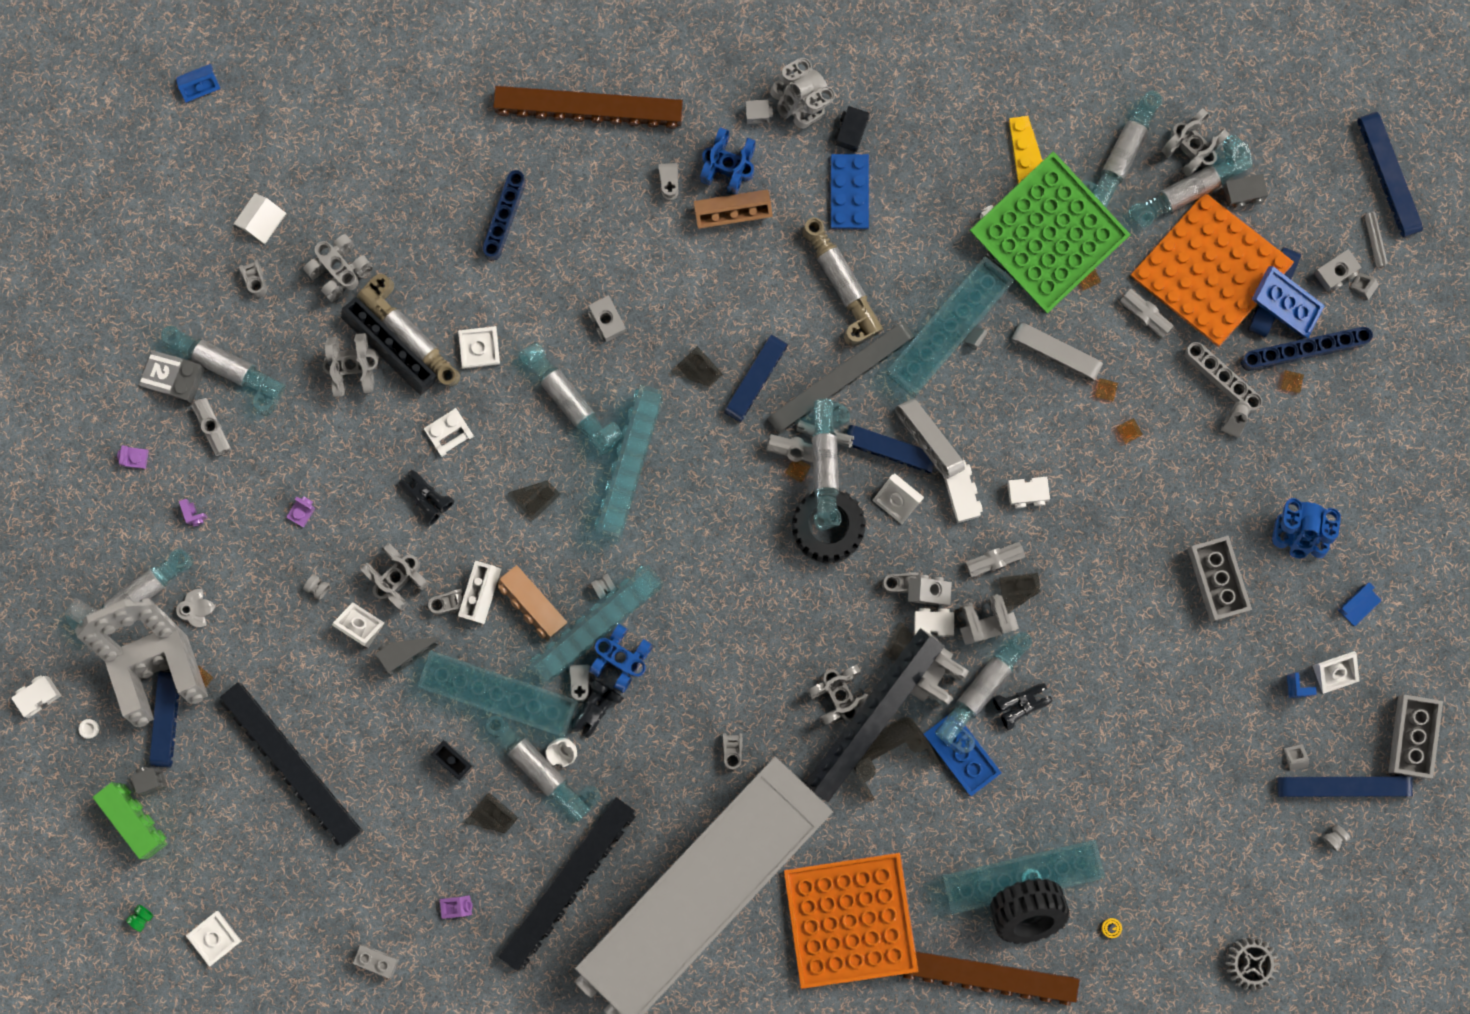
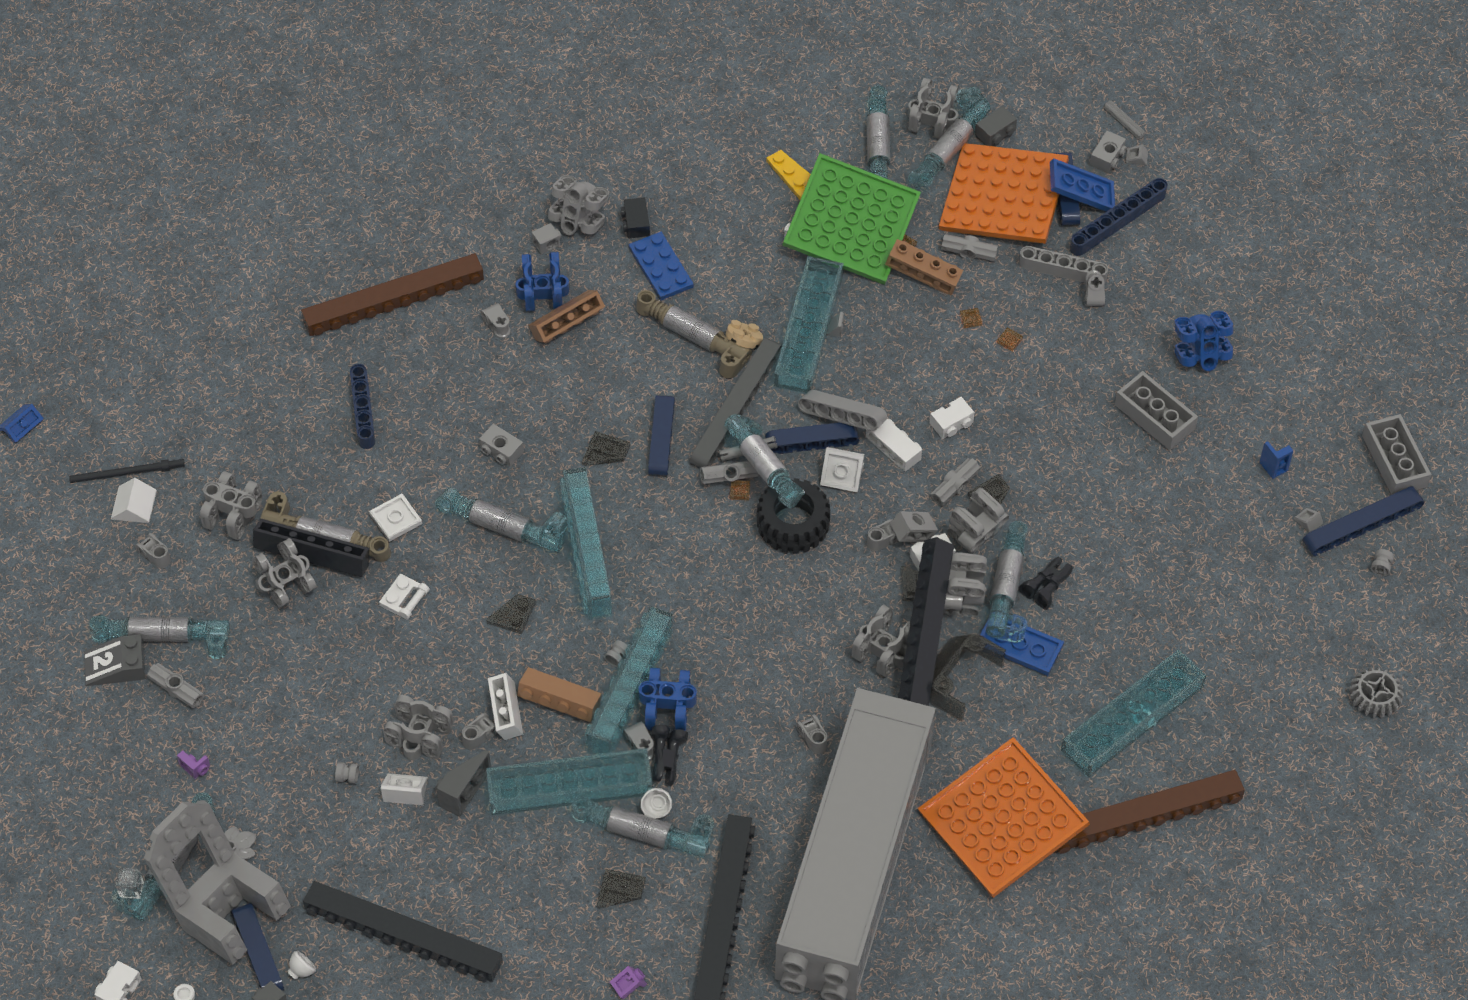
camera: 30 degrees left, 25 degrees down
(132, 457) = (111, 745): medium lavender bracket -> none
(194, 753) = (300, 965): none -> white brick
(301, 511) = (298, 717): medium lavender bracket -> none
(303, 191) = (164, 465): none -> black bar
(422, 493) = (405, 652): black piece -> none
(452, 760) = (557, 855): black brick -> none
(891, 303) = (744, 334): none -> tan plate
(1029, 911) = (1141, 719): black tyre -> none
(1057, 350) = (911, 305): light grey beam -> none
(1089, 317) = (924, 267): none -> medium nougat brick
(1111, 928) = (1237, 722): yellow tile -> none
(1292, 381) = (1122, 247): clear orange tile -> none
(1337, 672) = (1300, 436): white slope -> none
(1360, 604) = (1285, 382): blue panel -> none
(1390, 174) = (1106, 69): dark blue beam -> none

